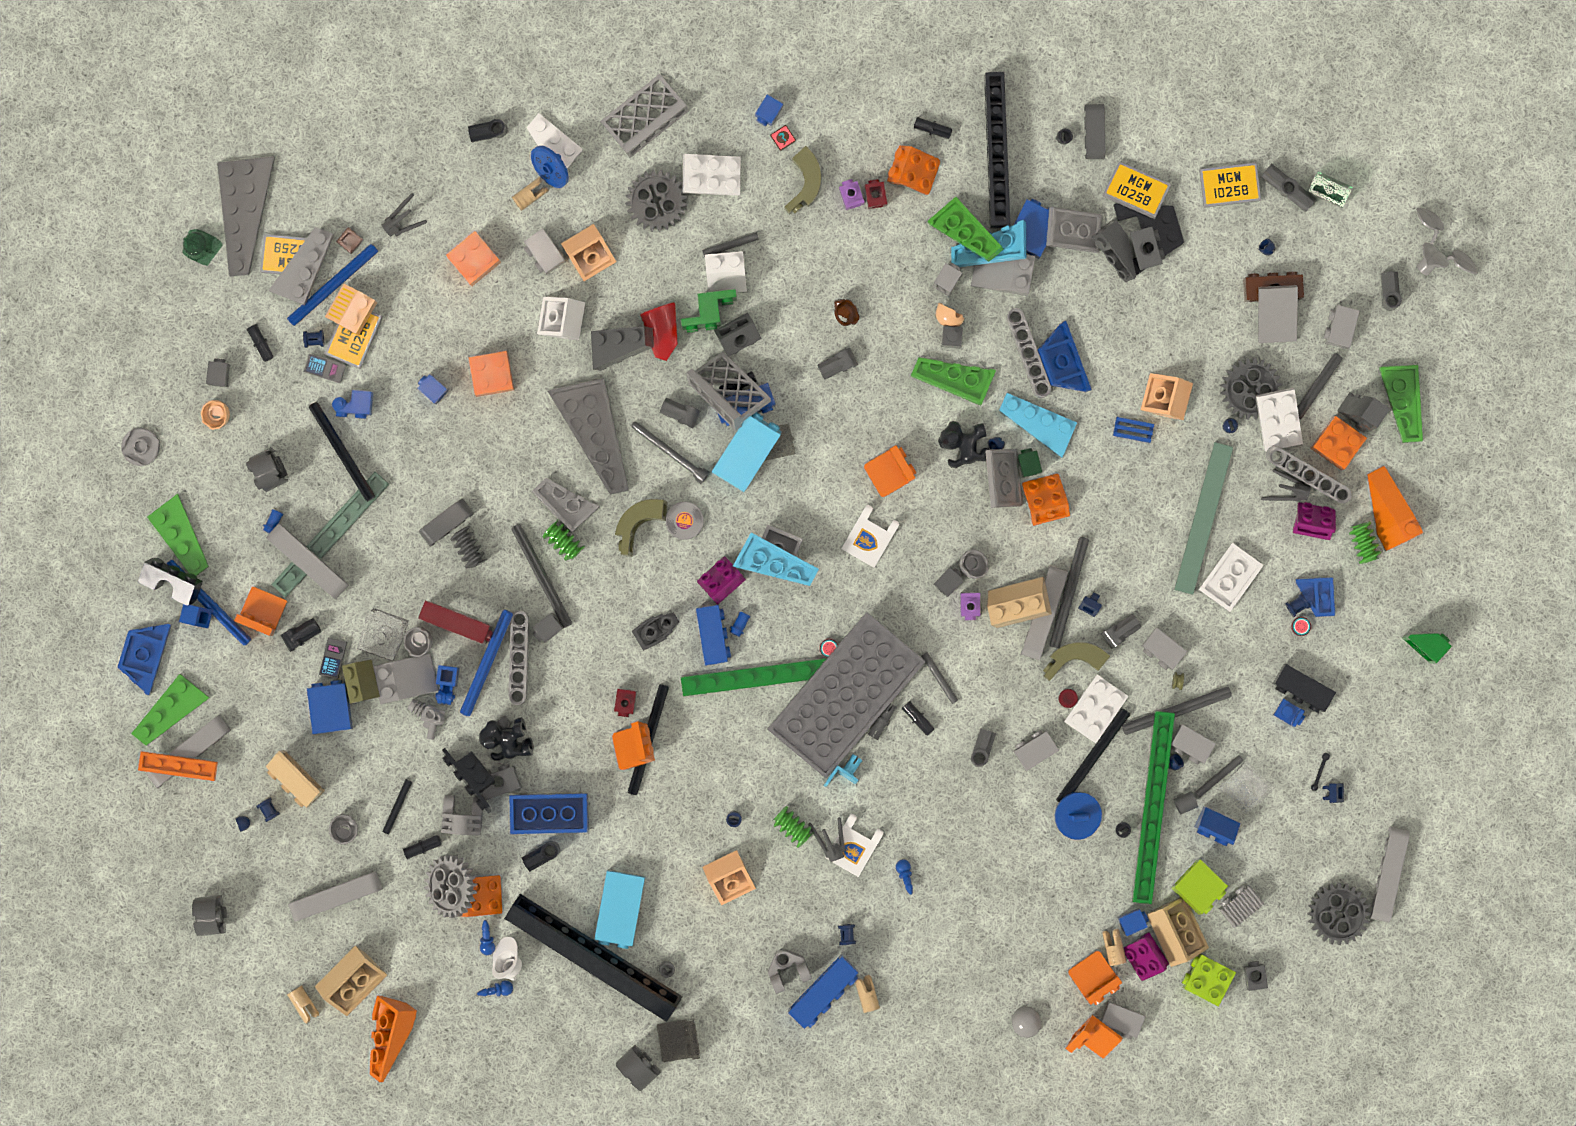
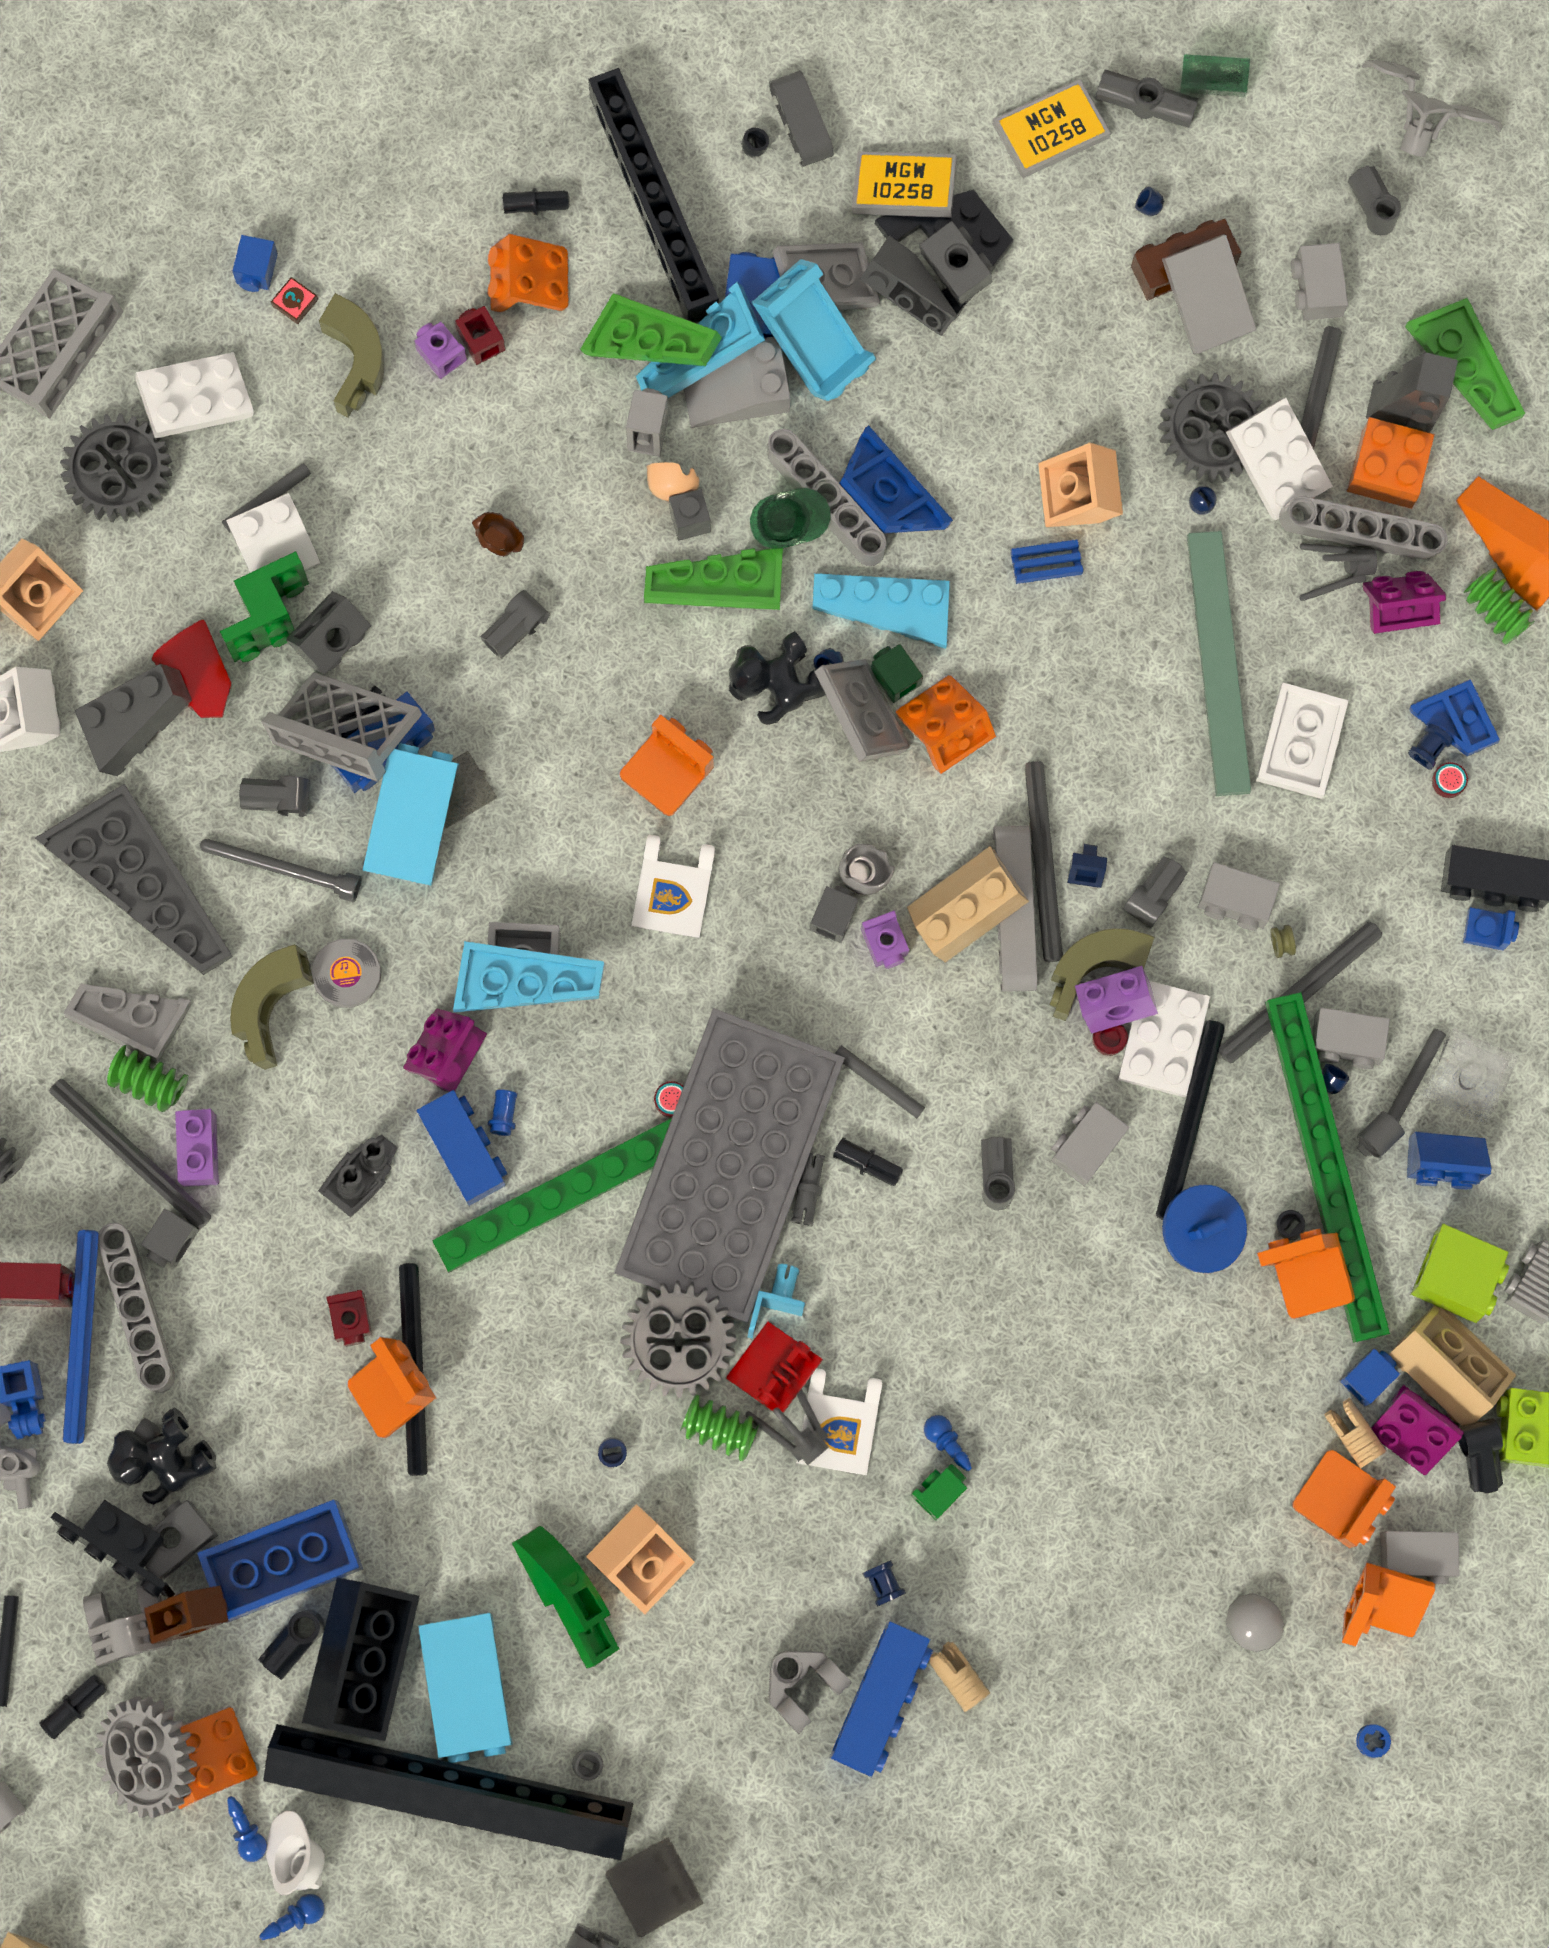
camera: 25 degrees left, 10 degrees down
(494, 825) = (186, 1614): none -> reddish brown brick
(572, 877) = (360, 1659): none -> black brick
(577, 586) = (197, 1147): none -> medium lavender brick
(688, 881) = (566, 1586): none -> green slope
(793, 758) = (679, 1371): none -> gear
(831, 806) = (774, 1368): none -> red hinge
(892, 899) = (940, 1491): none -> green brick
(1004, 359) = (790, 518): none -> clear green piece
(1054, 261) = (812, 331): none -> medium azure panel
(1062, 1107) = (1370, 1730): none -> blue bush
(1077, 682) = (1116, 999): none -> medium lavender brick
(1122, 859) = (1310, 1272): none -> orange bracket
(1173, 978) = (1480, 1447): none -> black piece

